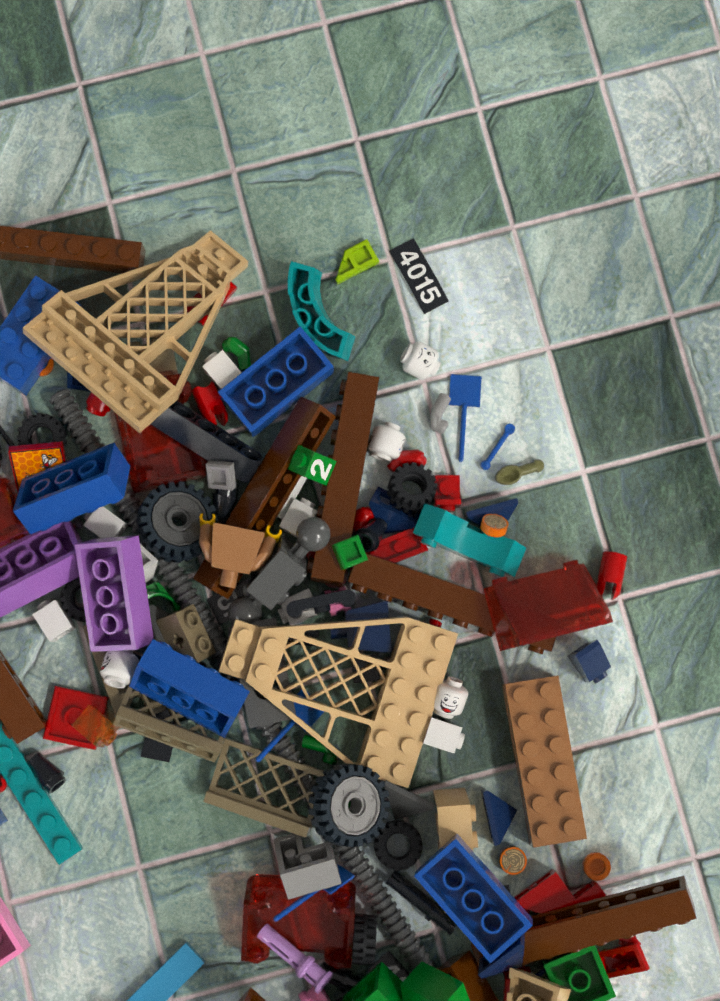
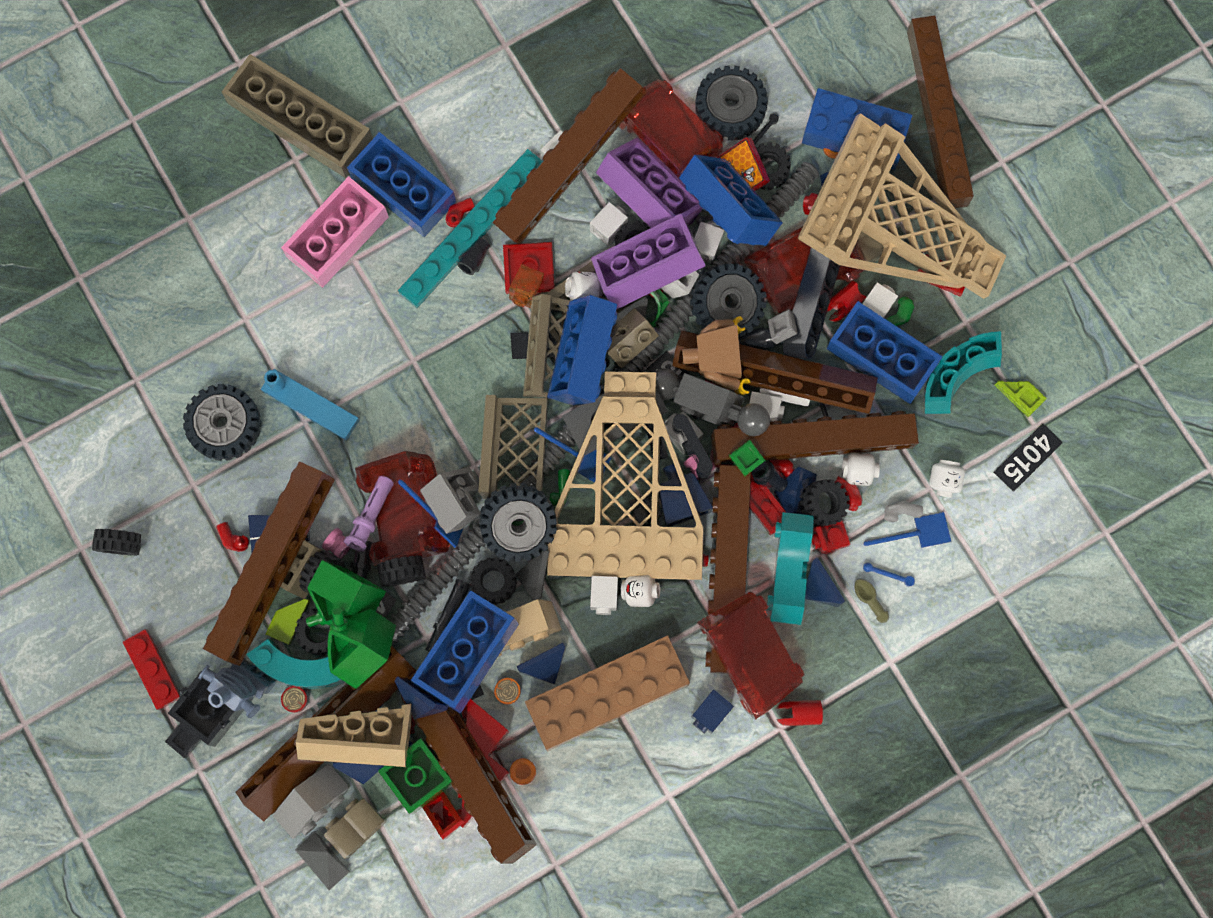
camera: 80 degrees right, 5 degrees down
(312, 465) = (817, 402): green brick -> none
(494, 525) = (812, 586): tile -> none

